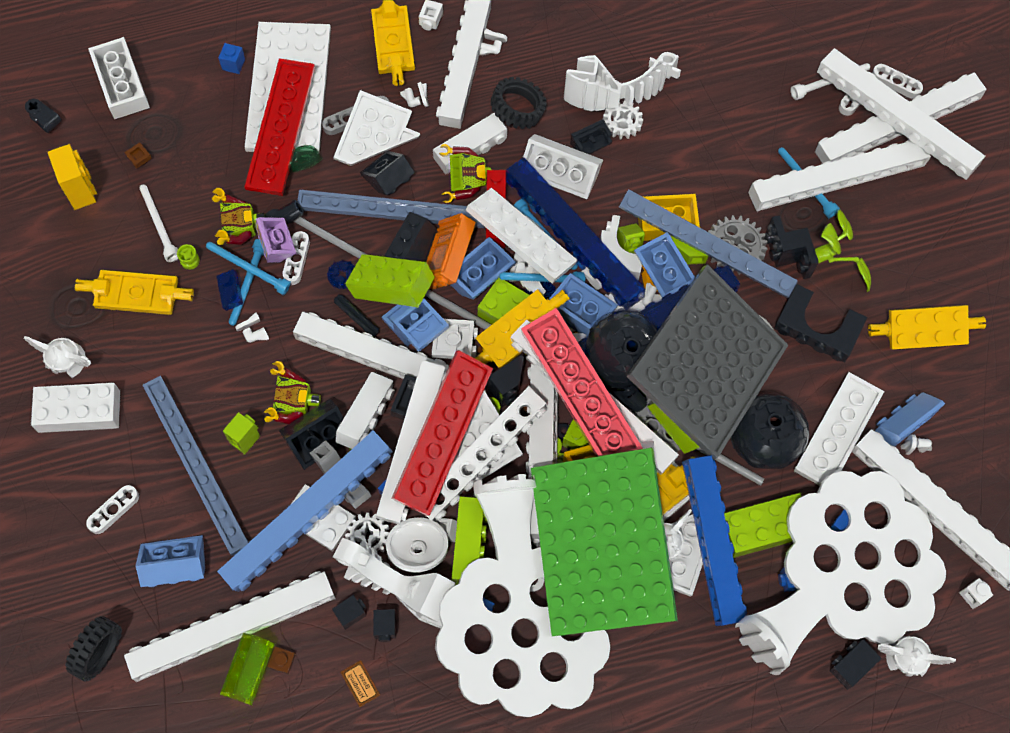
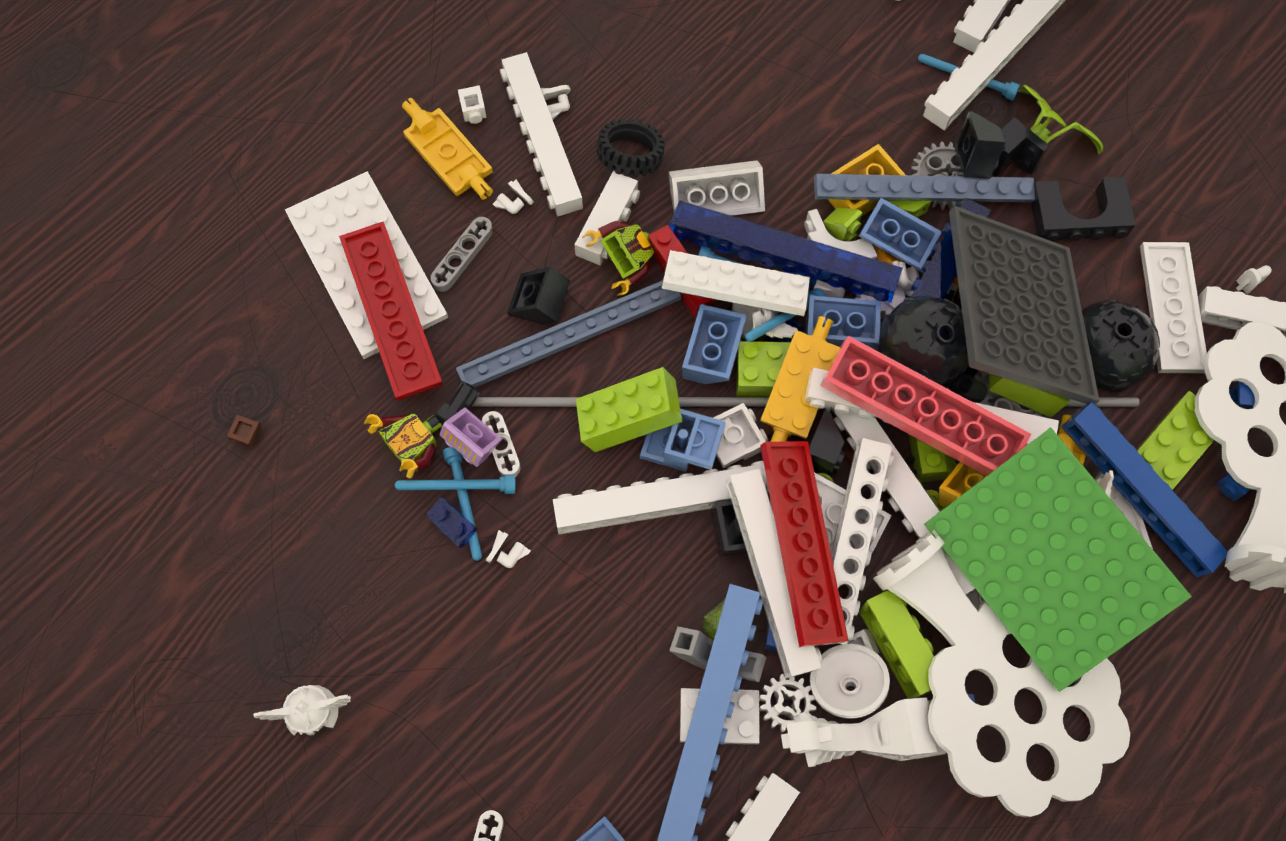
camera: 30 degrees left, 0 degrees up
(42, 115) = (99, 447): black piece -> none
(73, 176) = (188, 495): yellow brick -> none
(75, 407) = (363, 760): white brick -> none
(118, 78) = (165, 355): white brick -> none
(135, 291) = (343, 586): yellow plate -> none
(170, 250) = (355, 518): white piece -> none
(185, 253) = (377, 507): lime wheel -> none
(196, 465) = (546, 741): sand blue plate -> none
(231, 58) = (282, 265): blue brick -> none
(242, 432) = (577, 673): lime brick -> none
(291, 396) = (601, 600): torso -> none
(304, 158) = (438, 329): clear green piece -> none
(312, 430) = (653, 623): black slope -> none
(333, 272) = (567, 443): clear blue gear -> none
(350, 611) = (826, 799): black brick -> none
(356, 315) = (609, 469): black axle -> none
(365, 410) = (696, 570): white brick -> none
(373, 129) = (493, 258): white wing -> none
(384, 625) = (873, 790): black brick -> none
(413, 239) = (621, 352): black slope -> none
(449, 249) = (666, 339): orange door -> none
(591, 137) = (728, 144): black hinge -> none
(596, 89) = (702, 89): white piece -> none
(622, 120) = (747, 109): white gear -> none
(765, 235) = (979, 147): none -> black slope
(909, 418) = (1233, 254): medium blue slope -> none
(928, 327) = (1182, 156): yellow plate -> none

